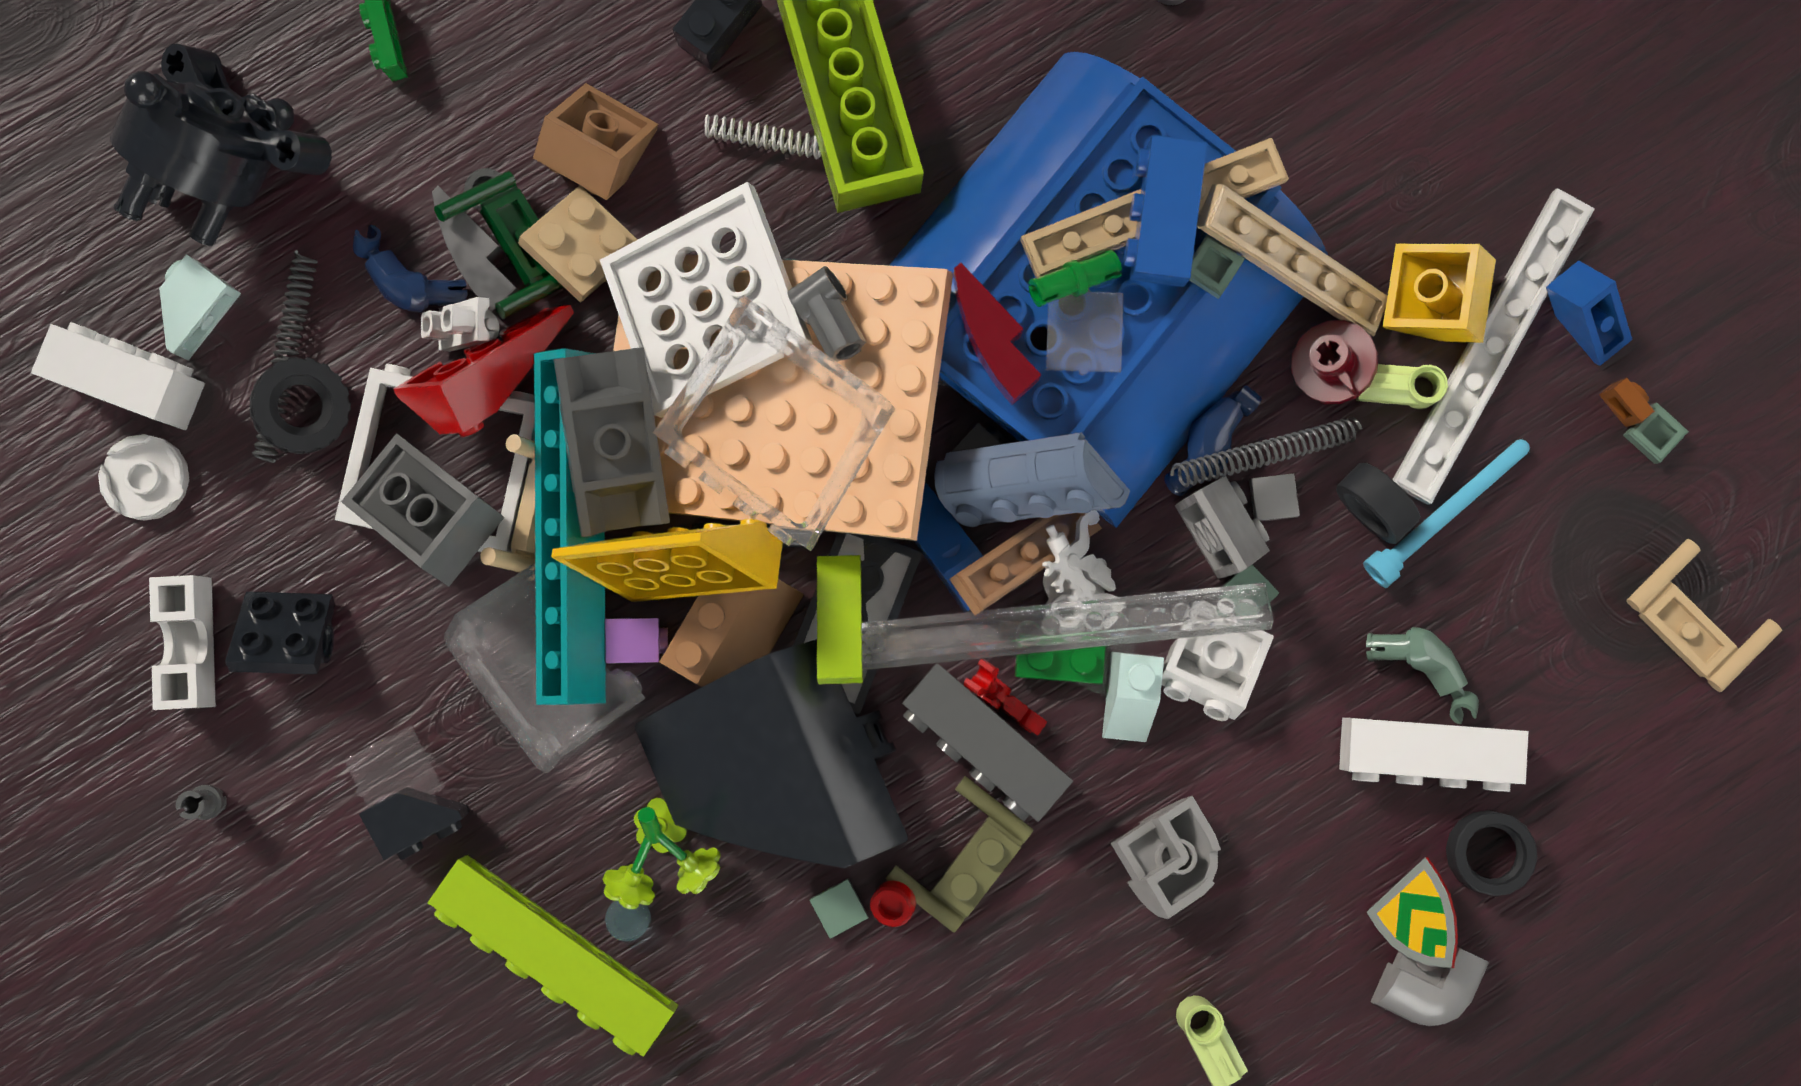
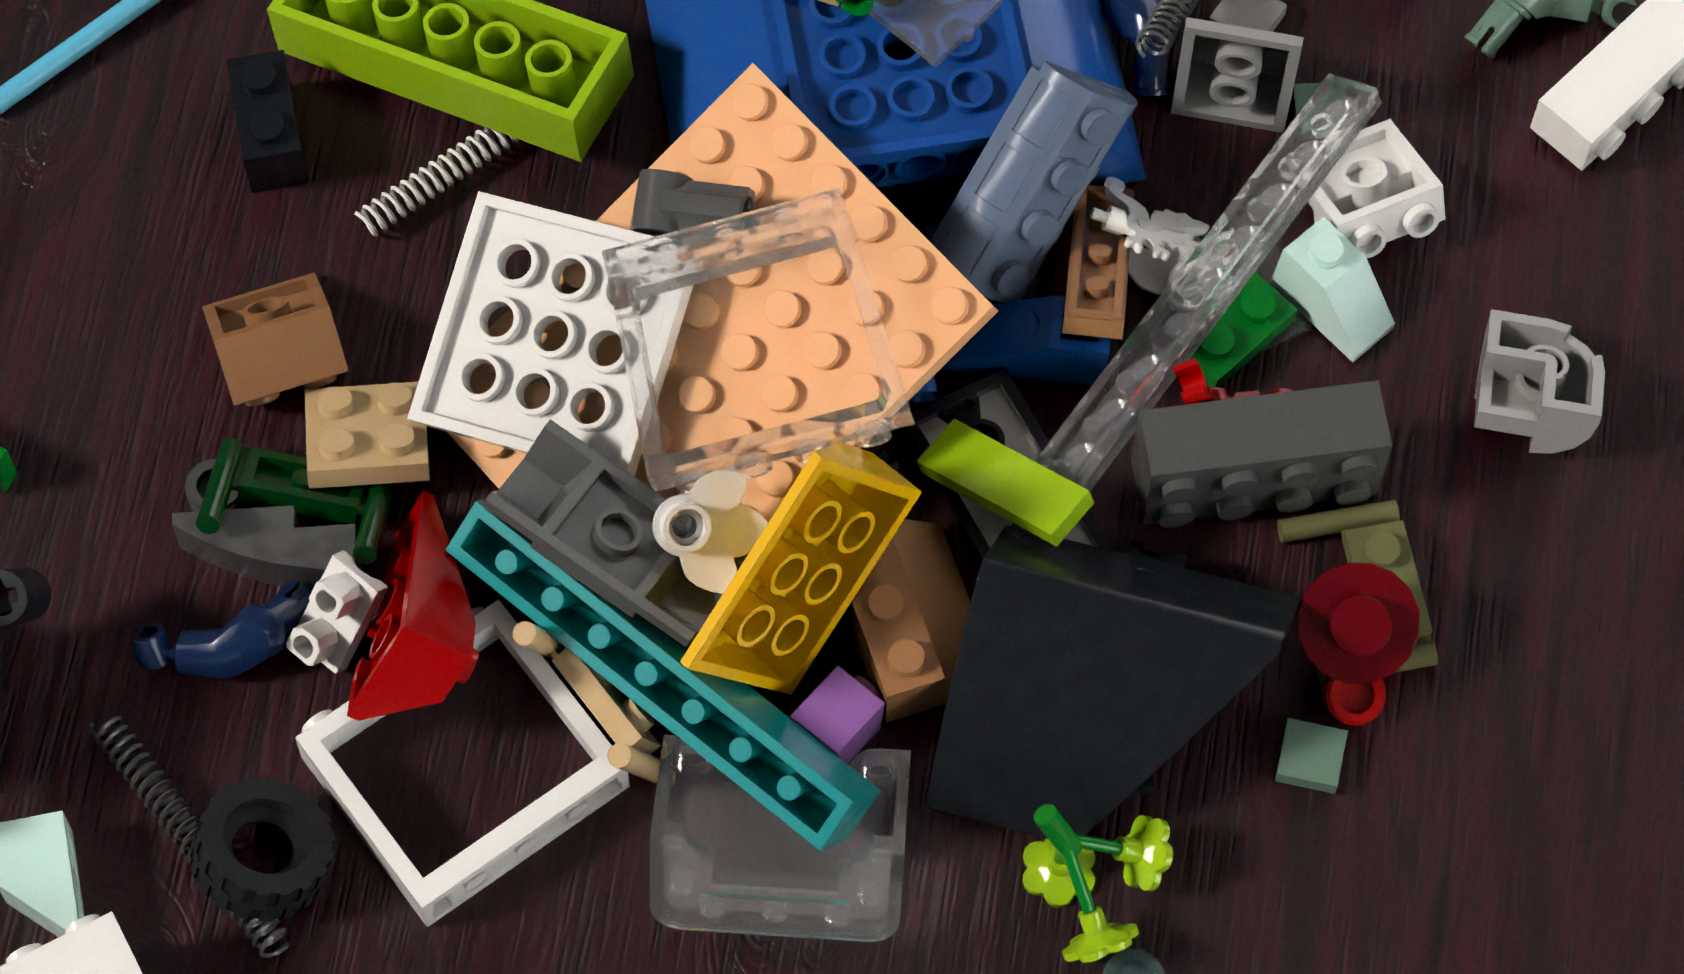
camera: 50 degrees left, 20 degrees down
(422, 510) = (502, 792): dark grey slope -> none
(660, 495) = (719, 528): none -> white plate
(924, 881) = (1358, 622): none -> dark red piece
(992, 336) = (856, 78): dark red slope -> none

